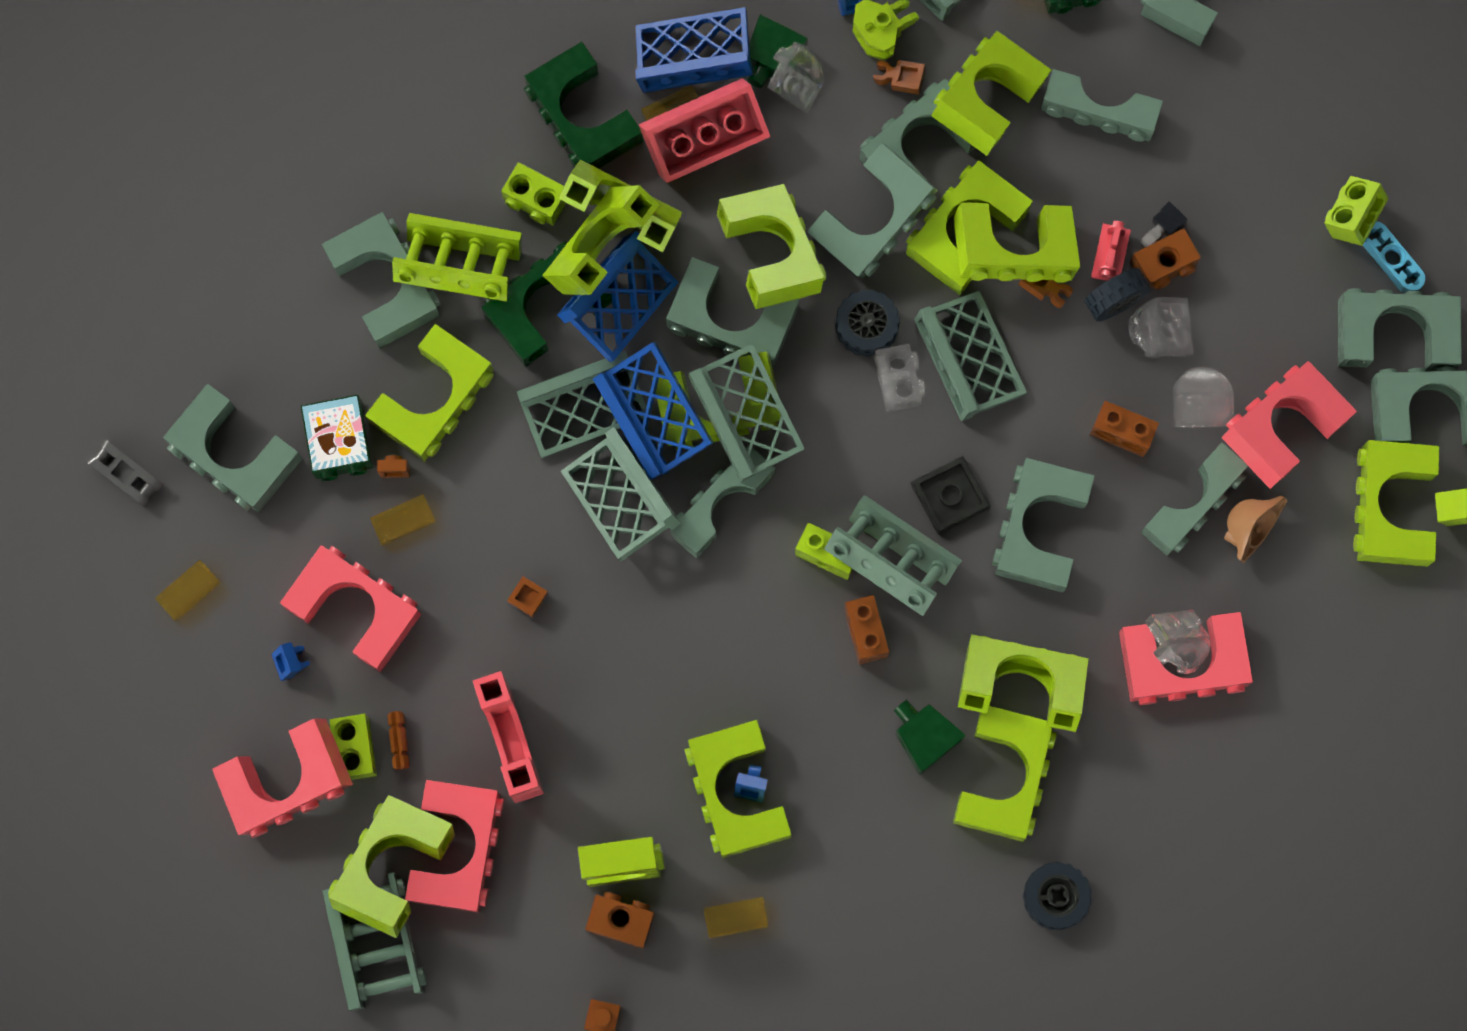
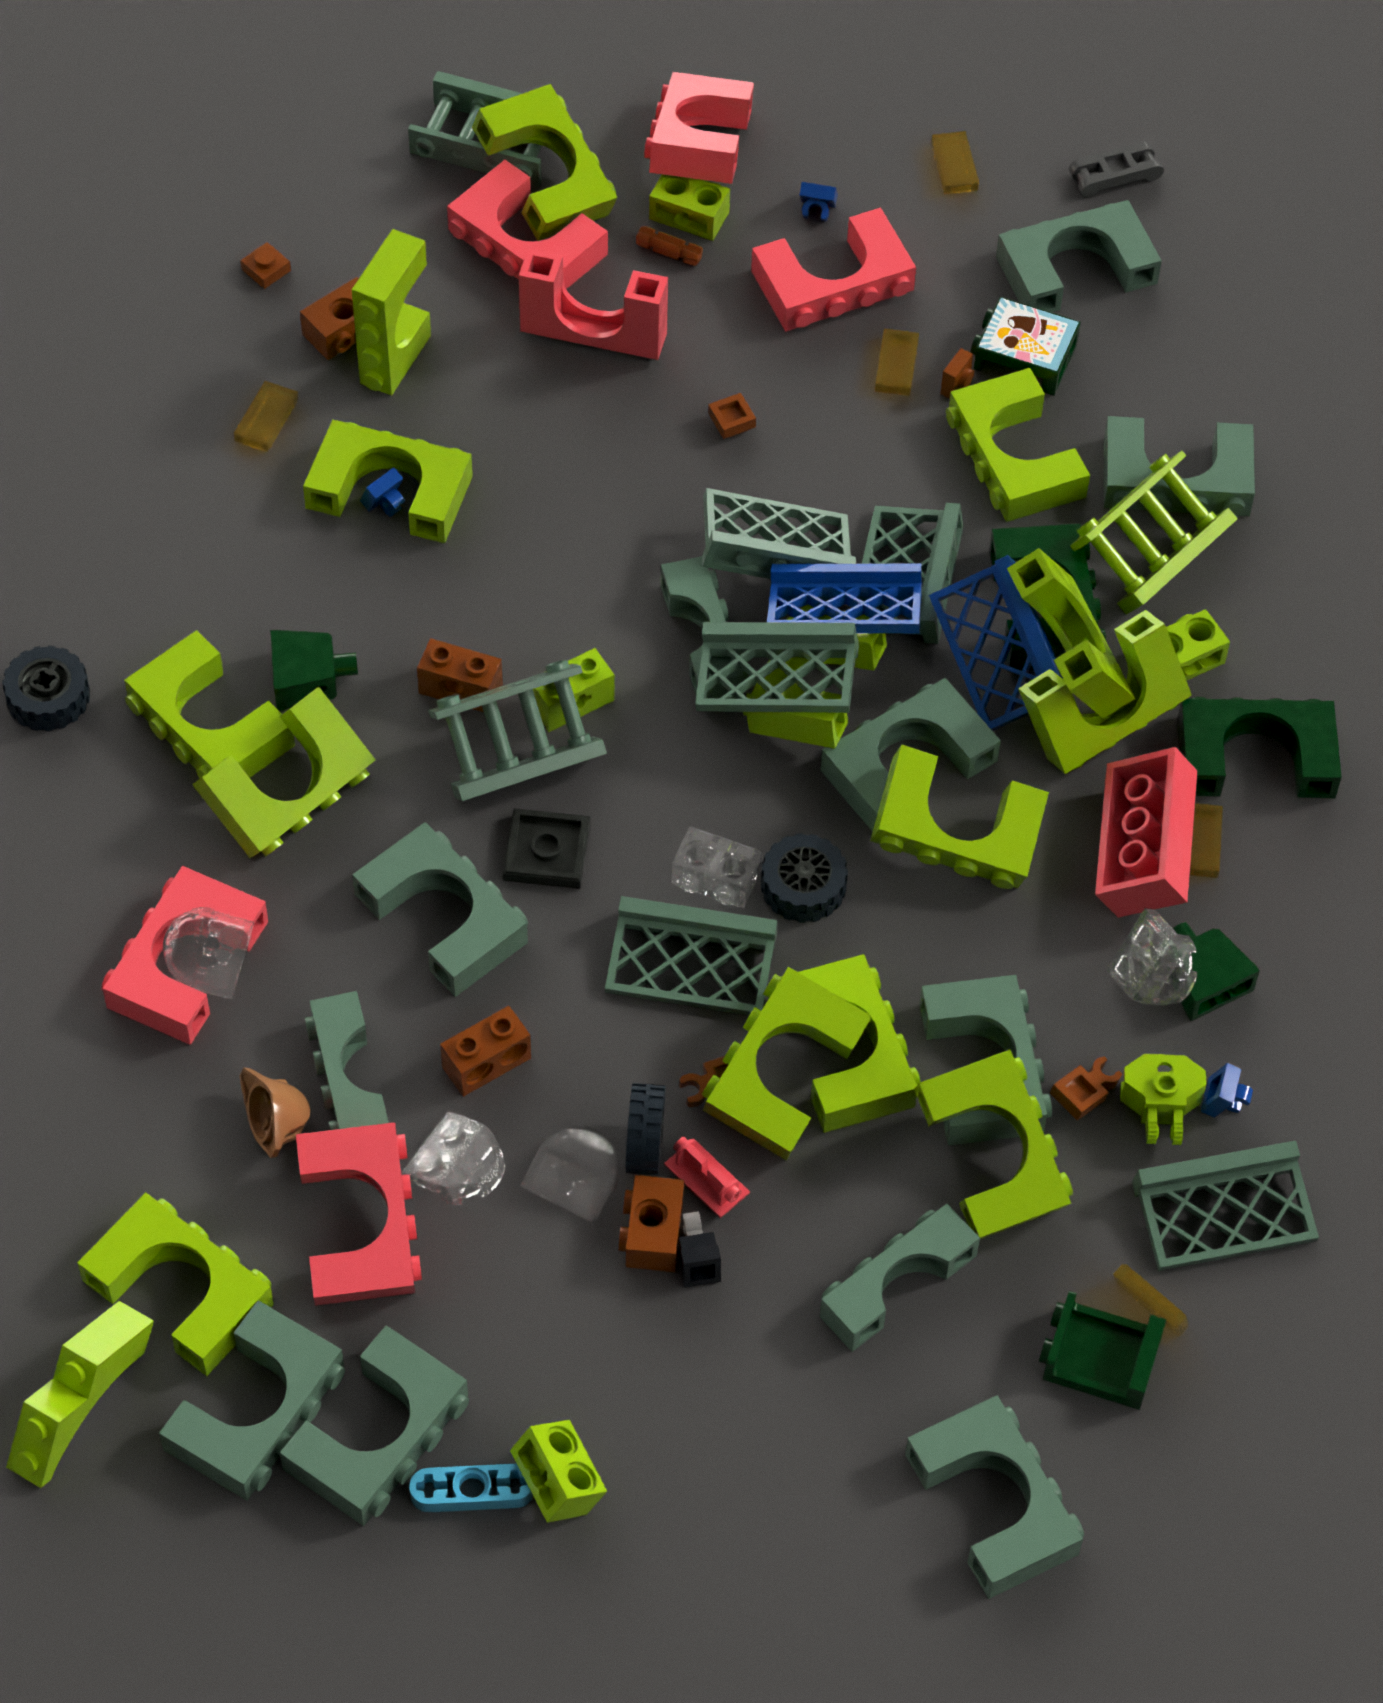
camera: 120 degrees right, 20 degrees down
(694, 68) = (1230, 877): blue fence -> none
(910, 195) = (920, 975): sand green arch -> none

